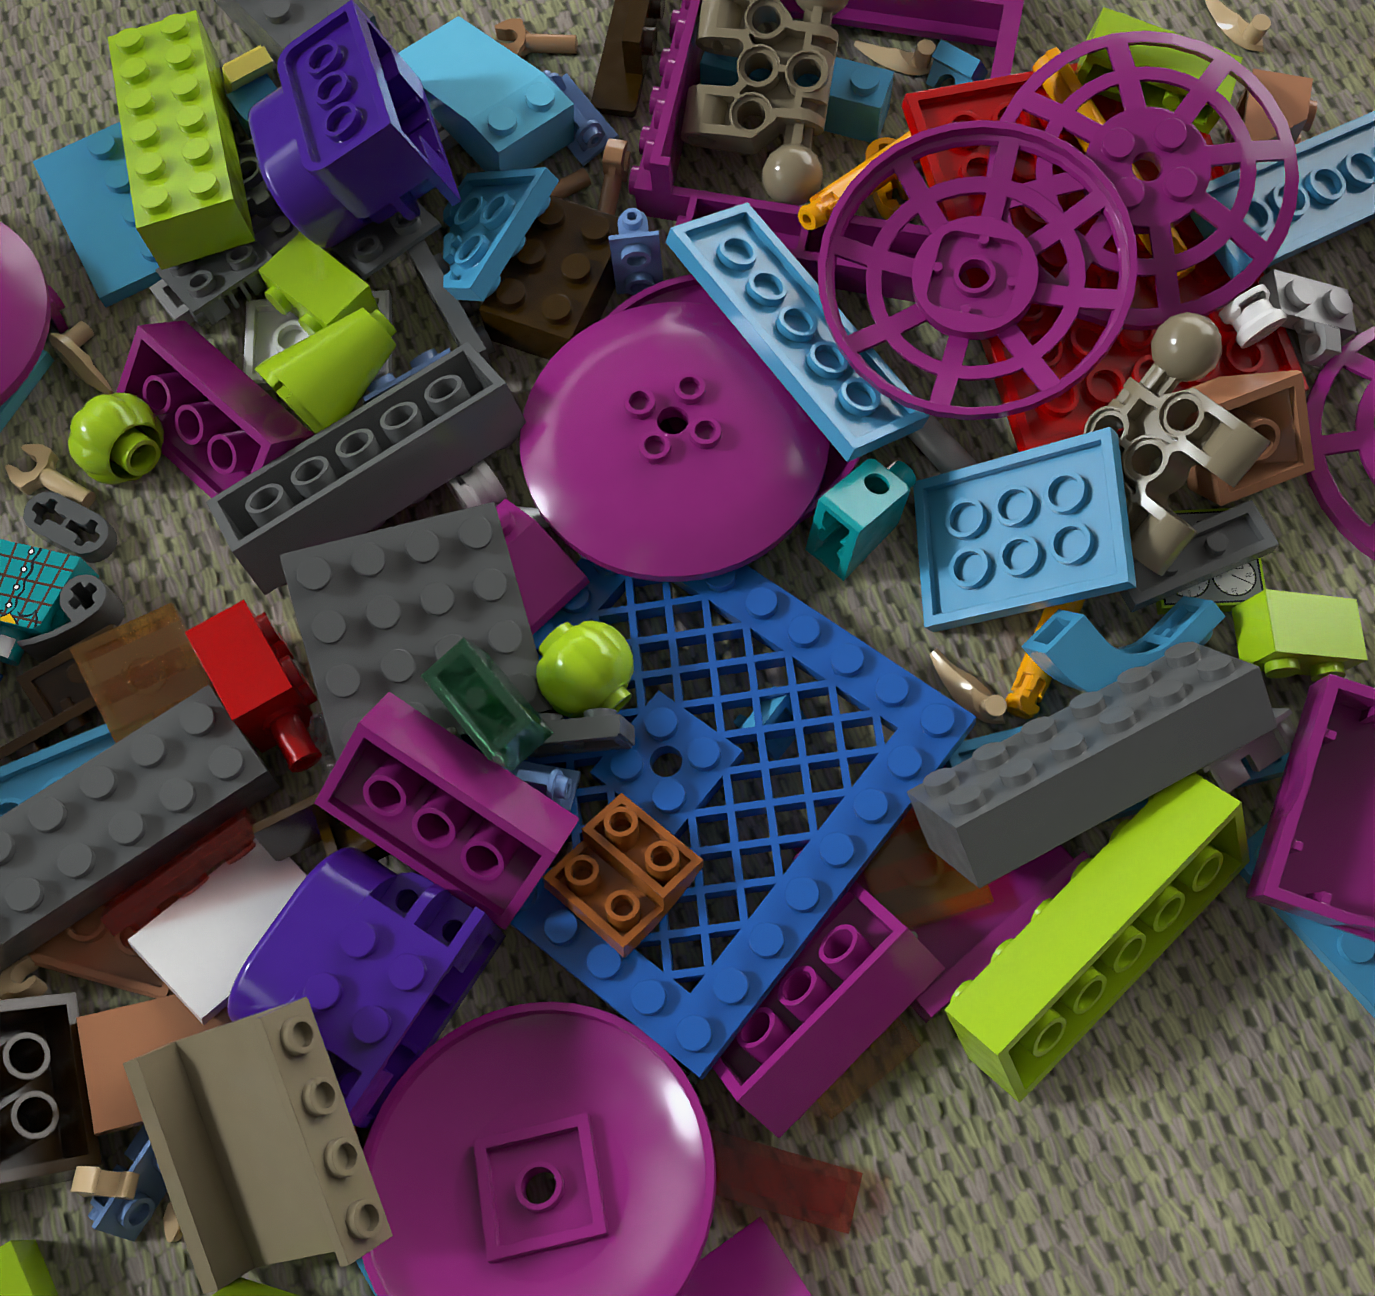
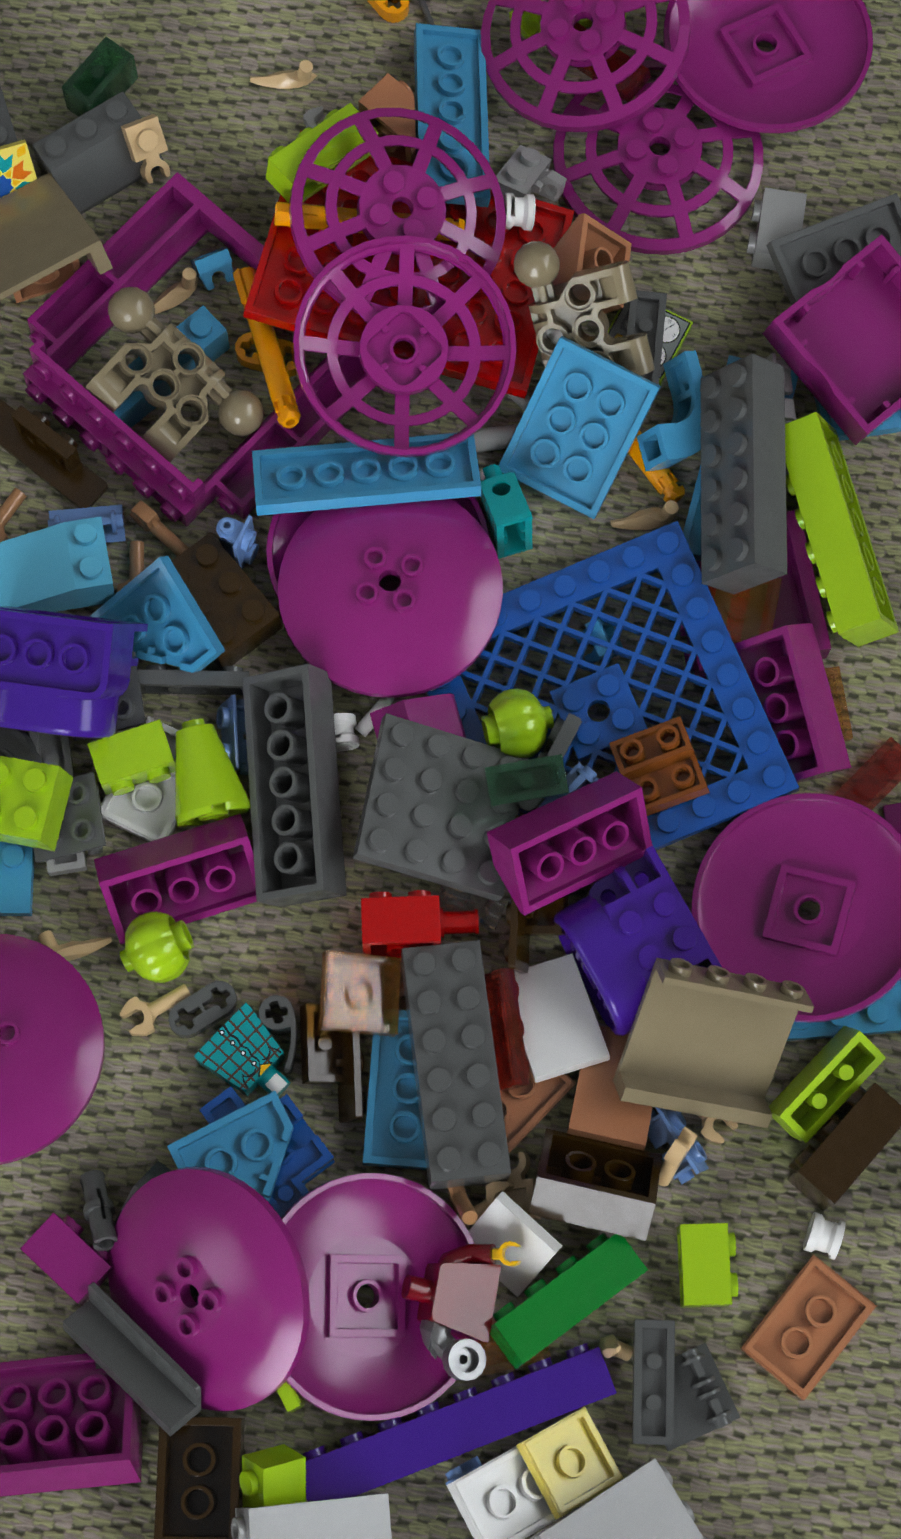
camera: 70 degrees left, 5 degrees up
(1299, 634) = (725, 319): lime brick -> none

